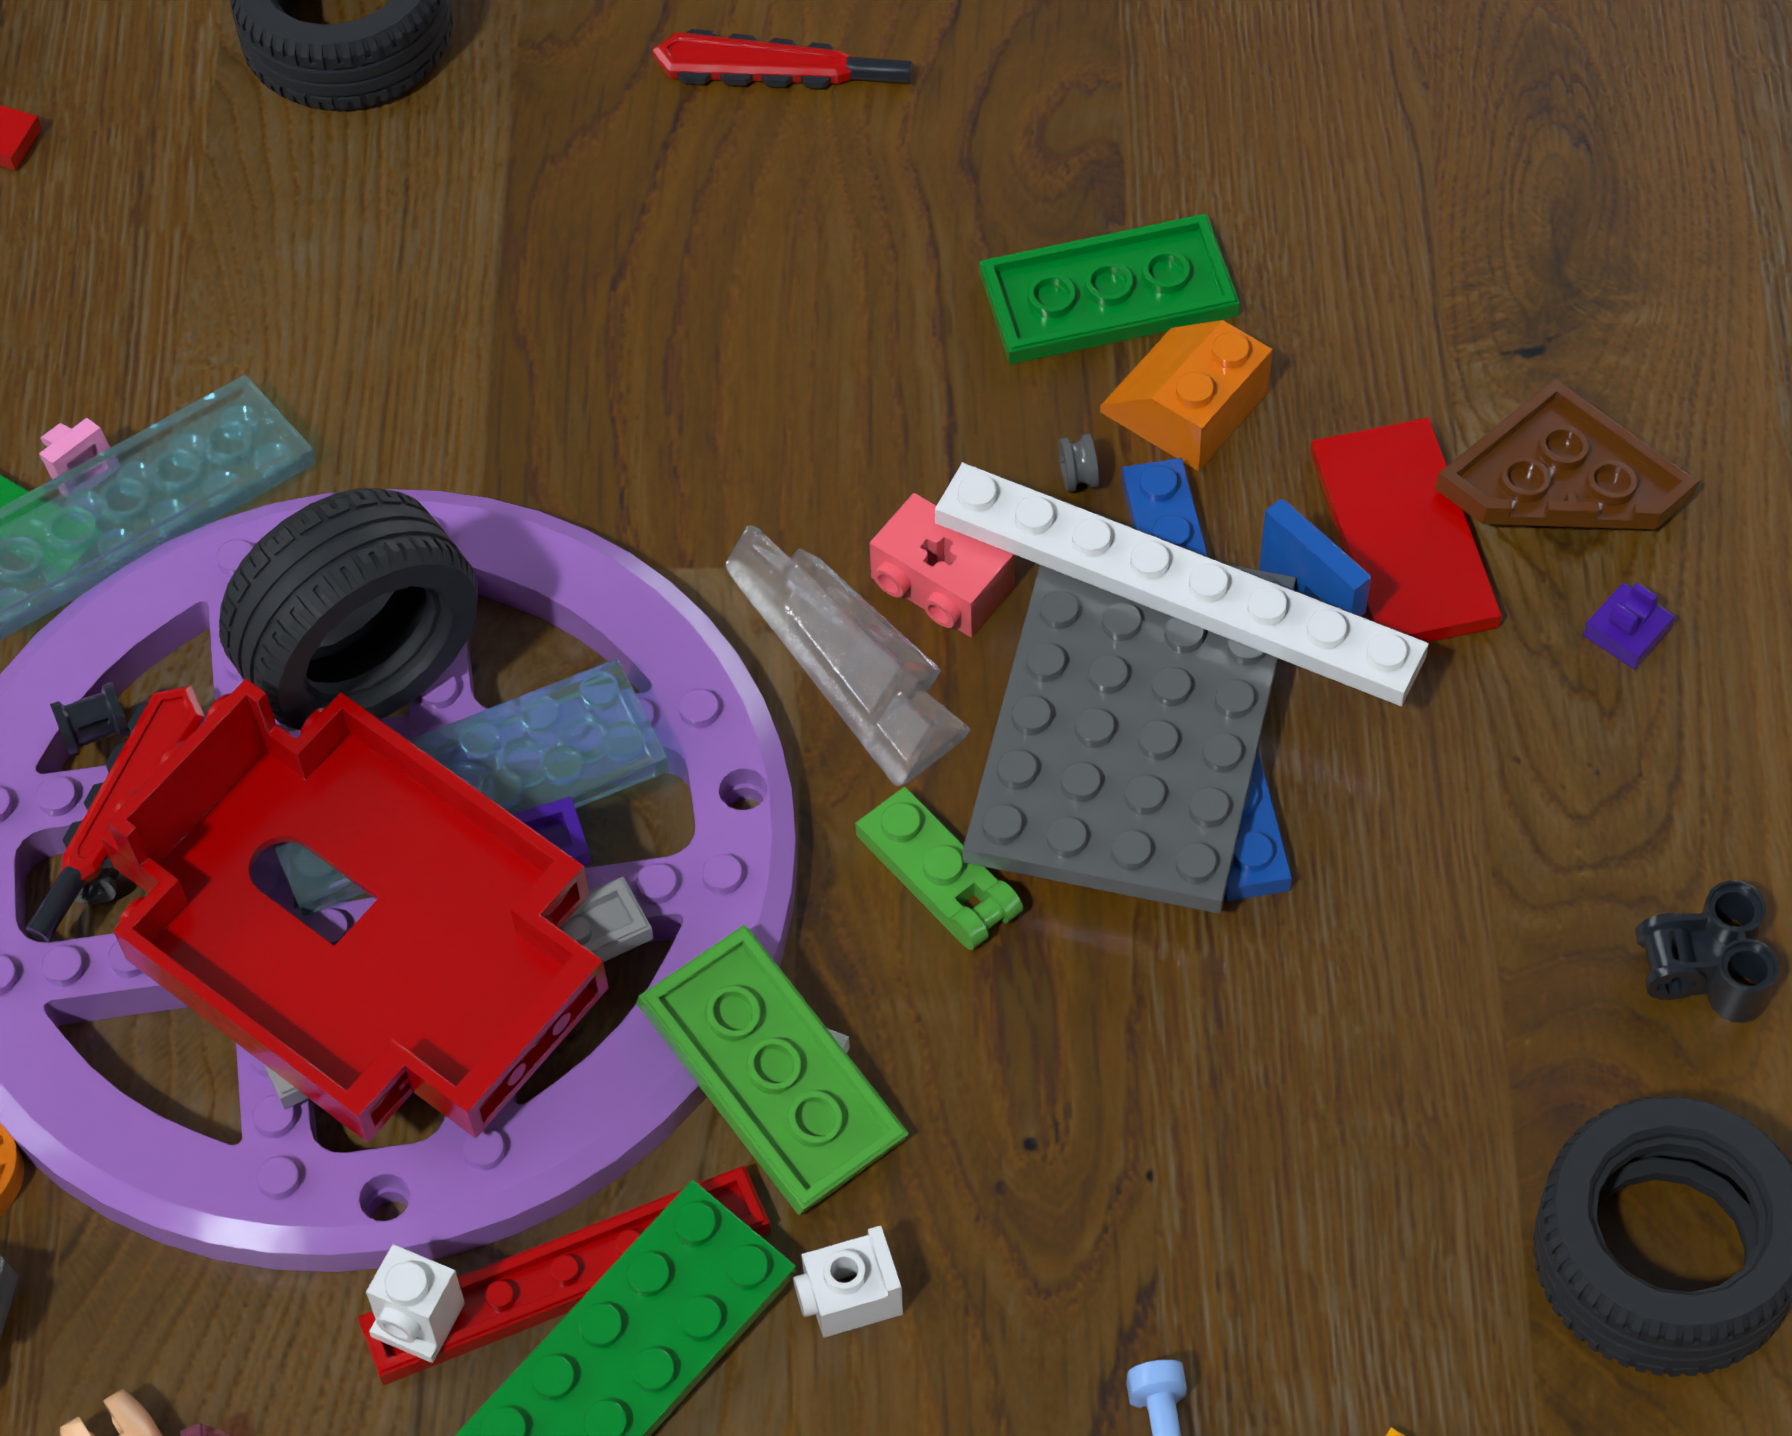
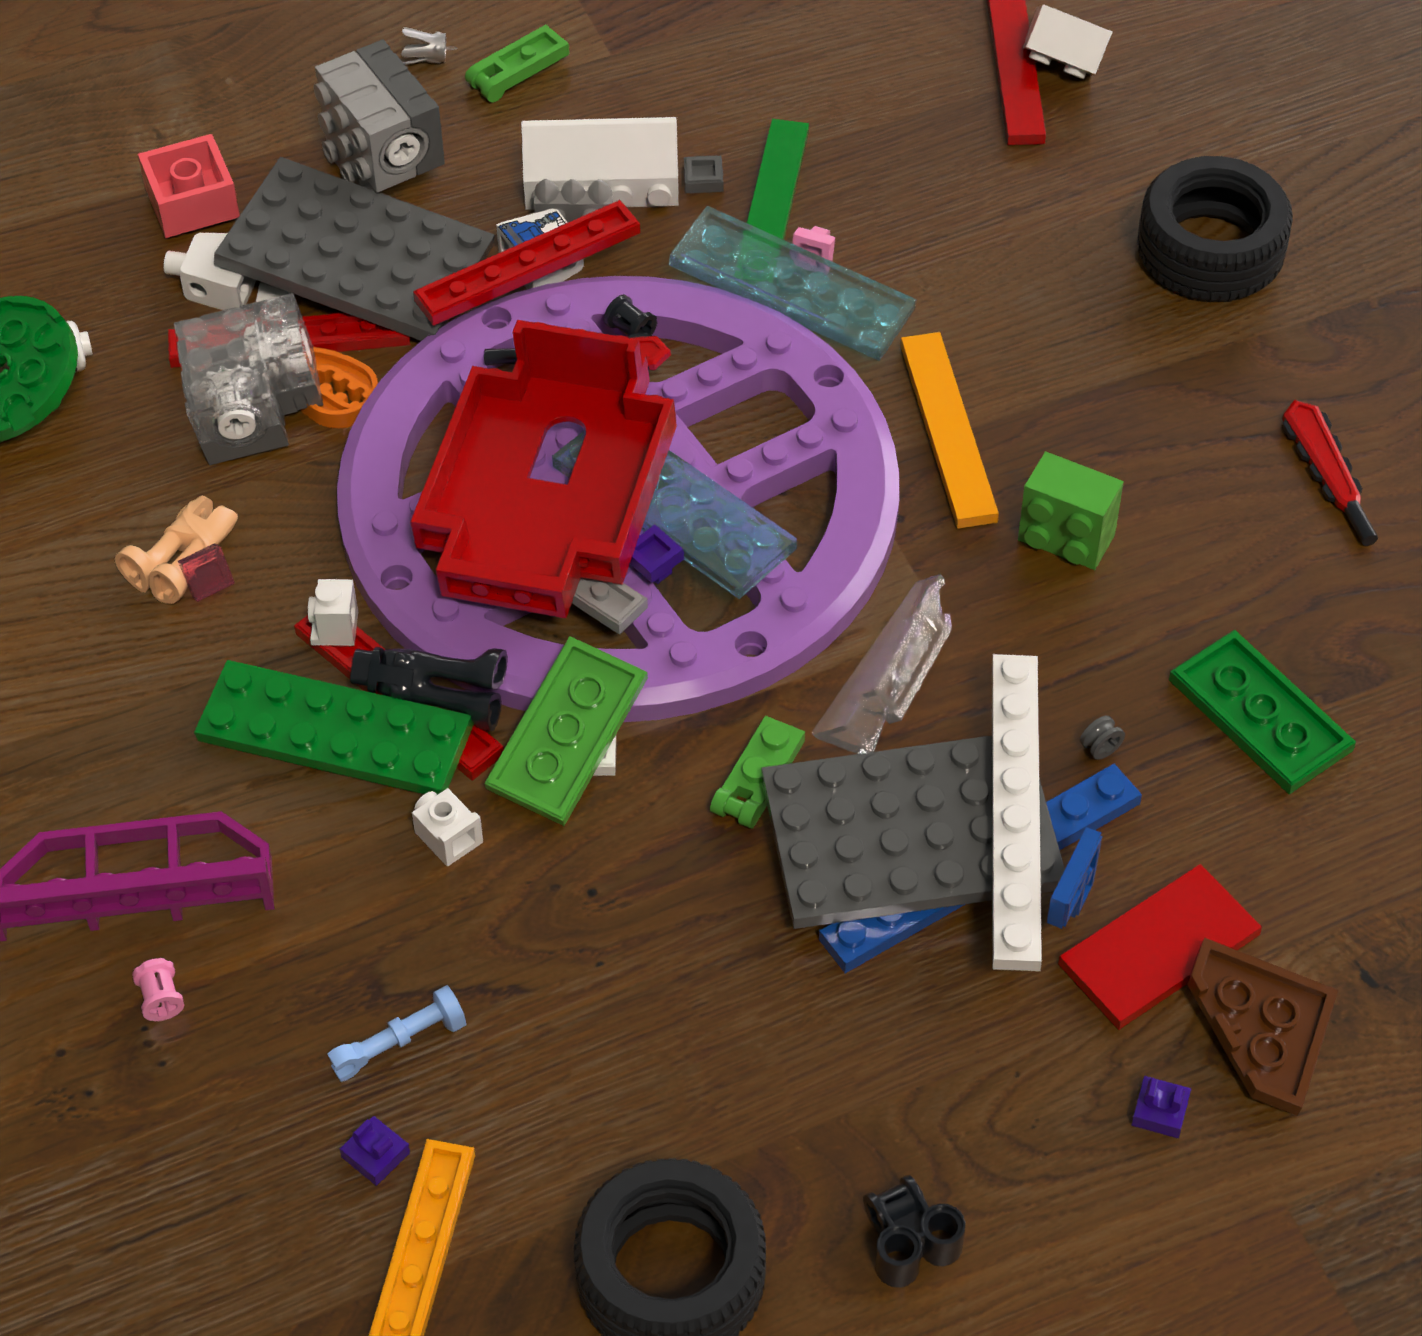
camera: 65 degrees right, 5 degrees down
(351, 602) = (752, 355): black tyre -> none
(480, 431) = (949, 431): none -> light orange tile
(579, 1233) = (408, 677): none -> black piece
(724, 342) = (1070, 510): none -> bright green brick
(940, 569) = (969, 701): coral brick -> none
(1193, 390) = (1198, 785): orange slope -> none

